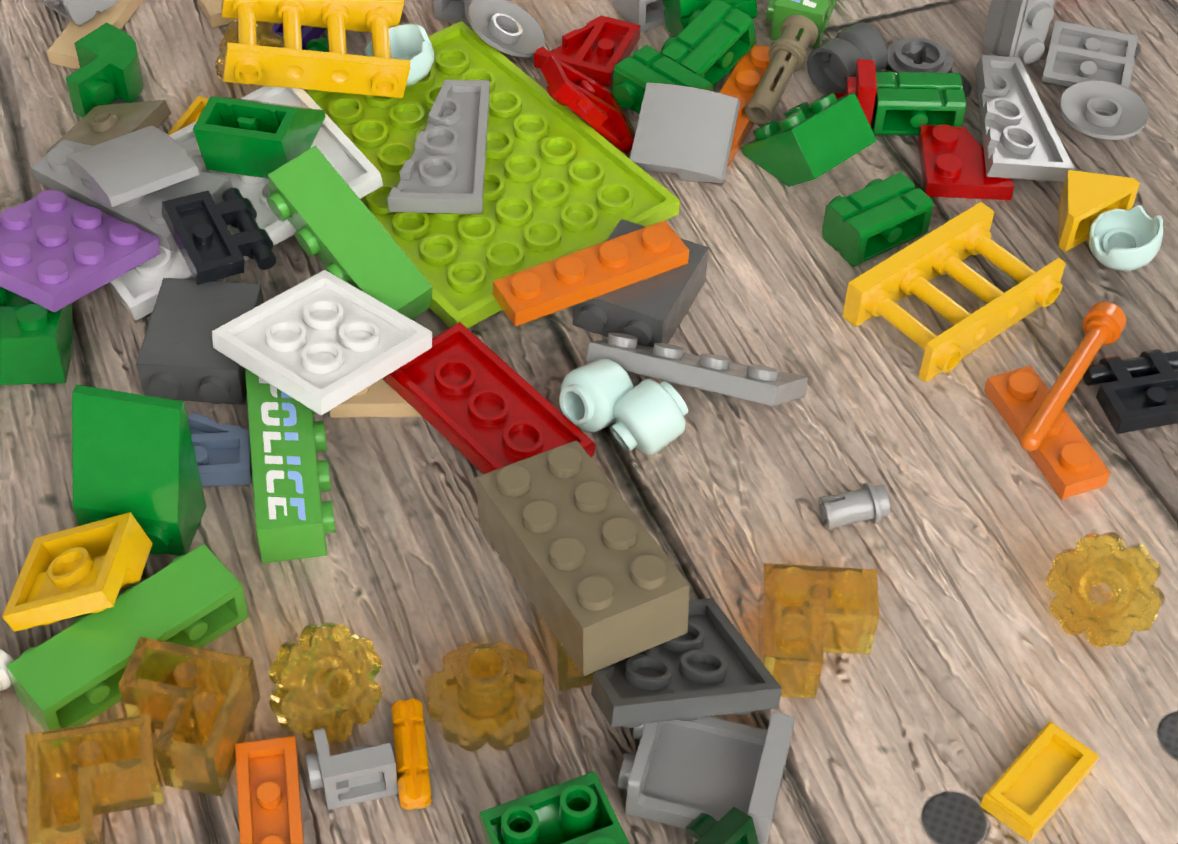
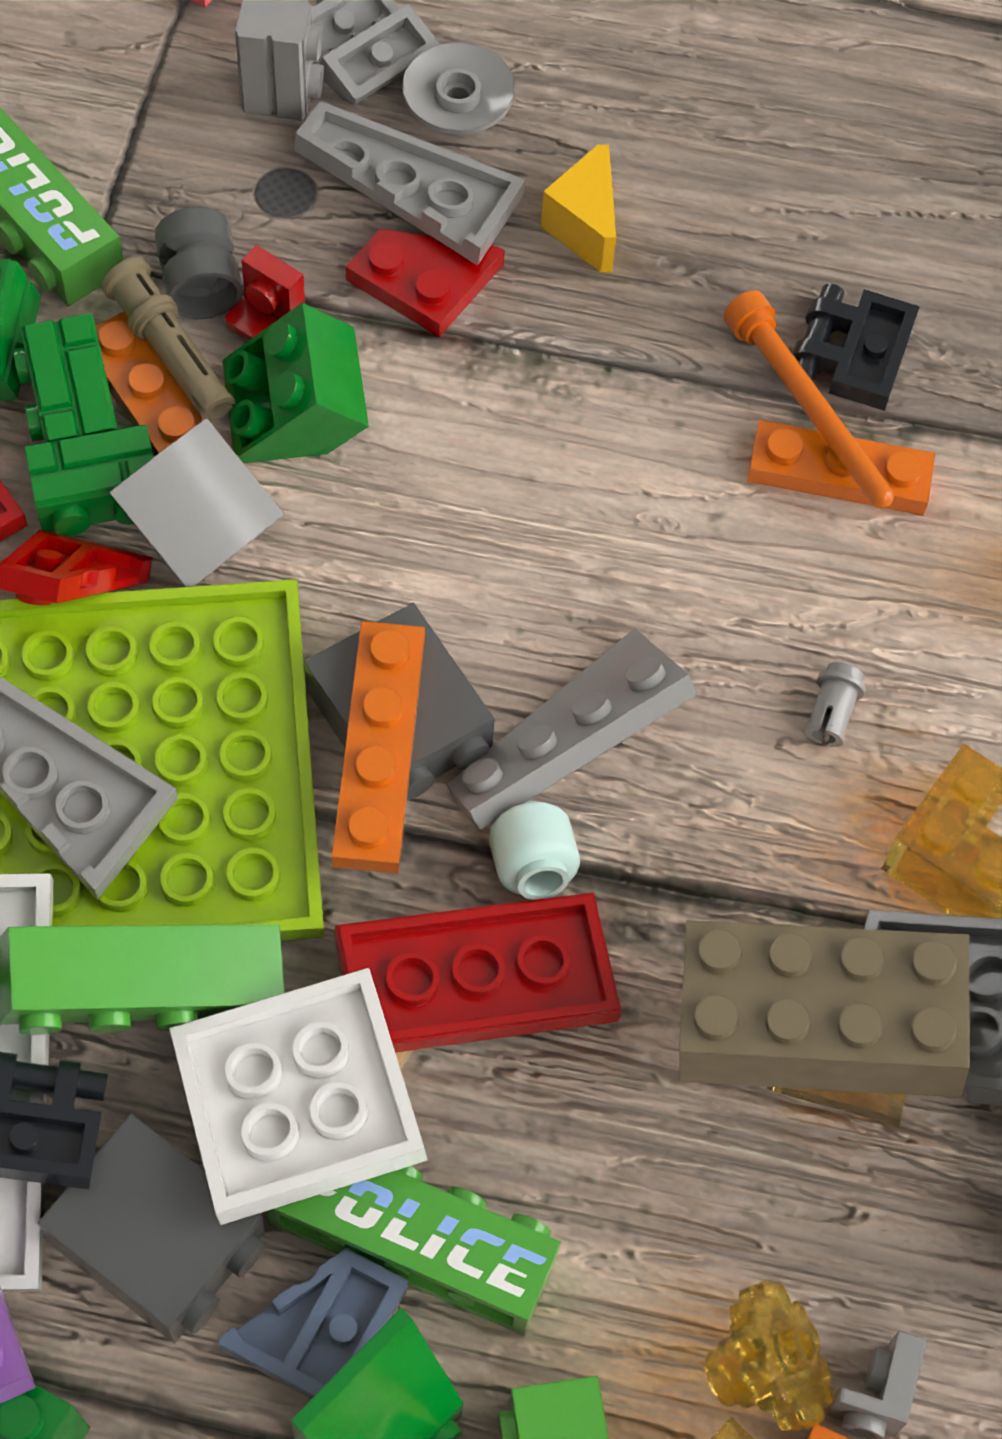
camera: 60 degrees left, 15 degrees up
(411, 754) = (883, 1313): light orange axle -> none
(486, 696) = (845, 1223): clear yellow plant -> none
(649, 417) = (602, 816): light aqua head -> none
(876, 218) = (463, 409): green brick -> none
(907, 51) = (245, 175): flat silver gear -> none
(916, 99) = (321, 236): green brick -> none
(942, 254) = (569, 441): yellow fence -> none
(1125, 238) = (657, 210): light aqua hair -> none

